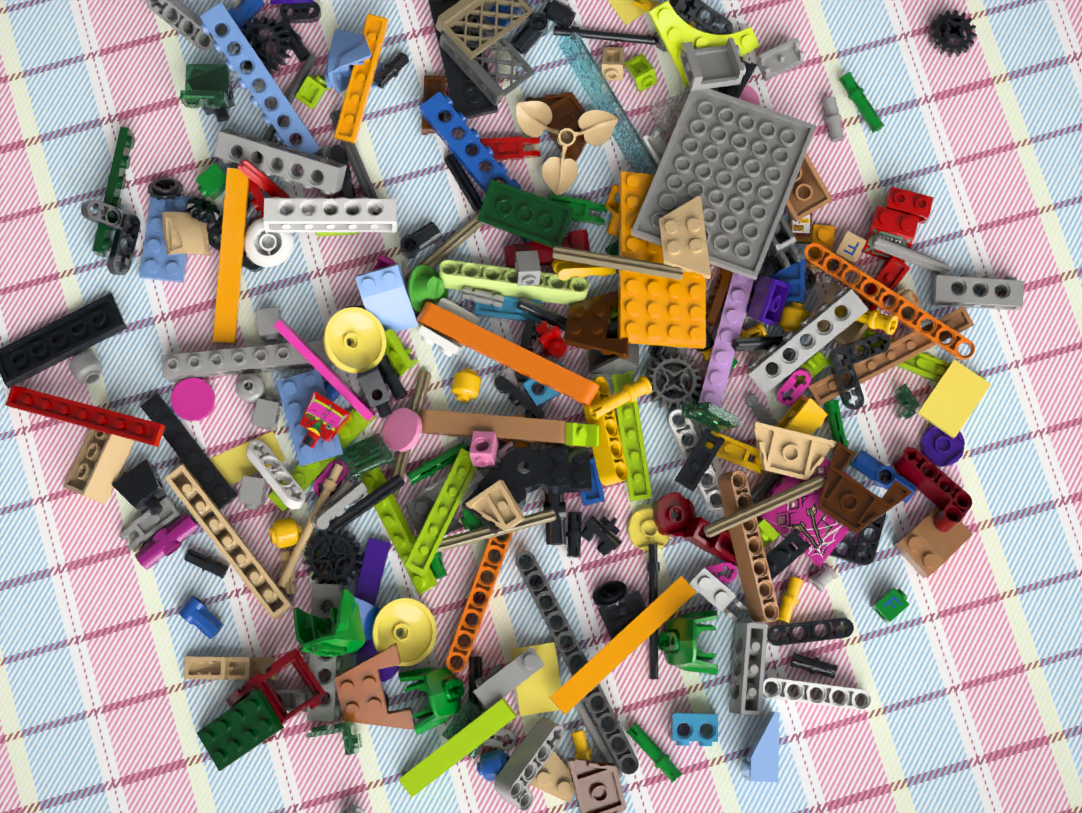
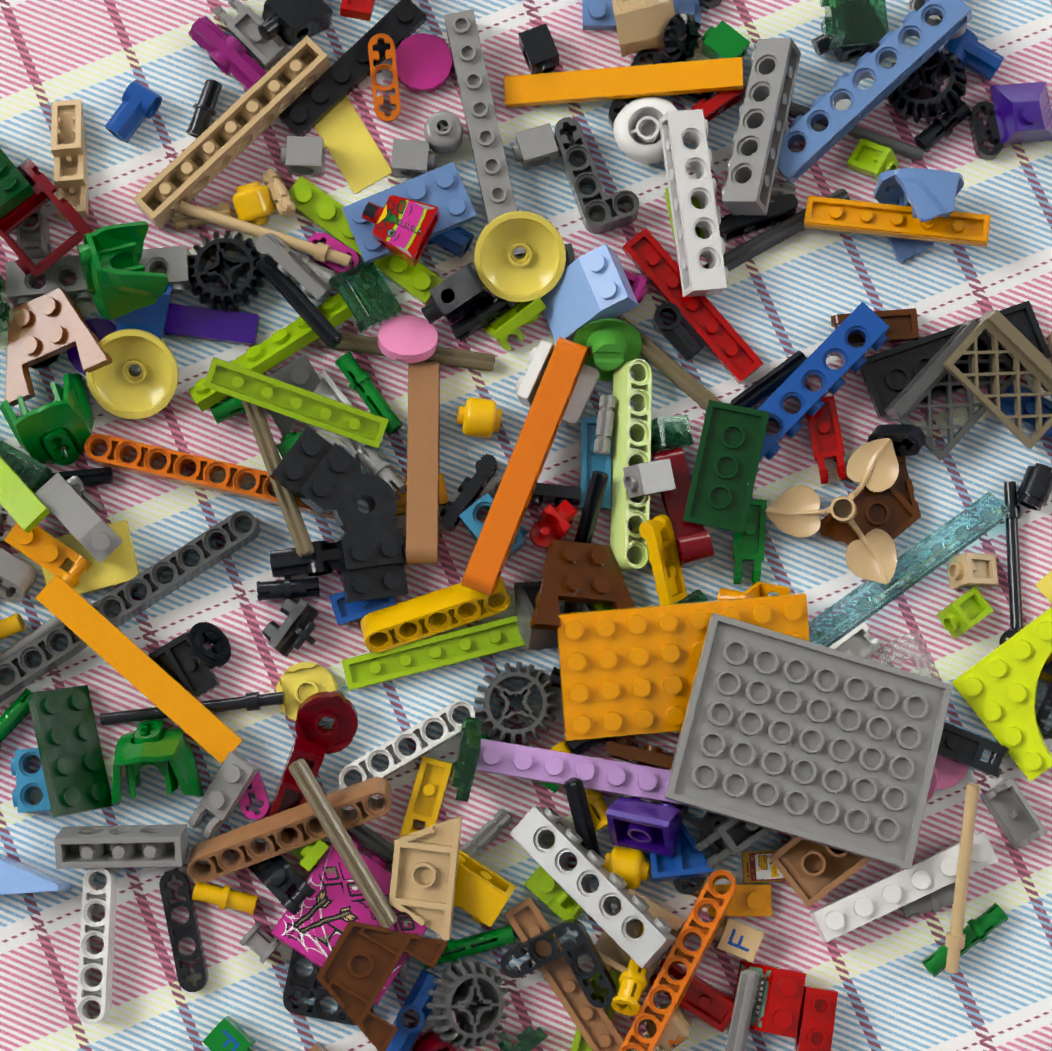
camera: 90 degrees right, 0 degrees up
(186, 421) = (374, 56): none -> orange beam
(197, 313) = (539, 49): none -> black brick
(261, 179) = (730, 108): red axle -> none
(276, 514) = (279, 193): none -> tan axle
(290, 494) = (326, 175): white beam -> none
(296, 287) = (588, 175): none -> dark grey beam
(324, 369) = (474, 219): dark pink tile -> none
(391, 70) = (918, 263): black axle -> none
(407, 223) = (697, 310): none -> red plate
(483, 449) = (397, 442): bright pink brick -> none
(492, 252) = (670, 433): none -> clear green bracket
(498, 506) = (302, 471): tan wing -> none
(517, 92) = (897, 433): none -> black beam
(529, 35) = (996, 447): black piece -> none
(530, 706) = (48, 553): none -> light orange plate
(582, 435) = (422, 580): lime bracket -> none
(617, 262) = (667, 600): dark tan axle -> none
(628, 393) = (488, 640): yellow pin -> none
(676, 700) = (70, 750): none -> dark green plate
(685, 238) = (711, 689): tan wing -> none
(699, 460) = (402, 747): black plate -> none
(712, 66) = (982, 709): light grey panel -> none
(790, 383) = (523, 881): dark pink beam -> none
(813, 665) = (137, 940): black pin -> none
(833, 160) = (898, 889): none -> white arch
(861, 106) = (955, 938): none -> tan bar
(879, 435) = (472, 1028): none -> dark grey gear

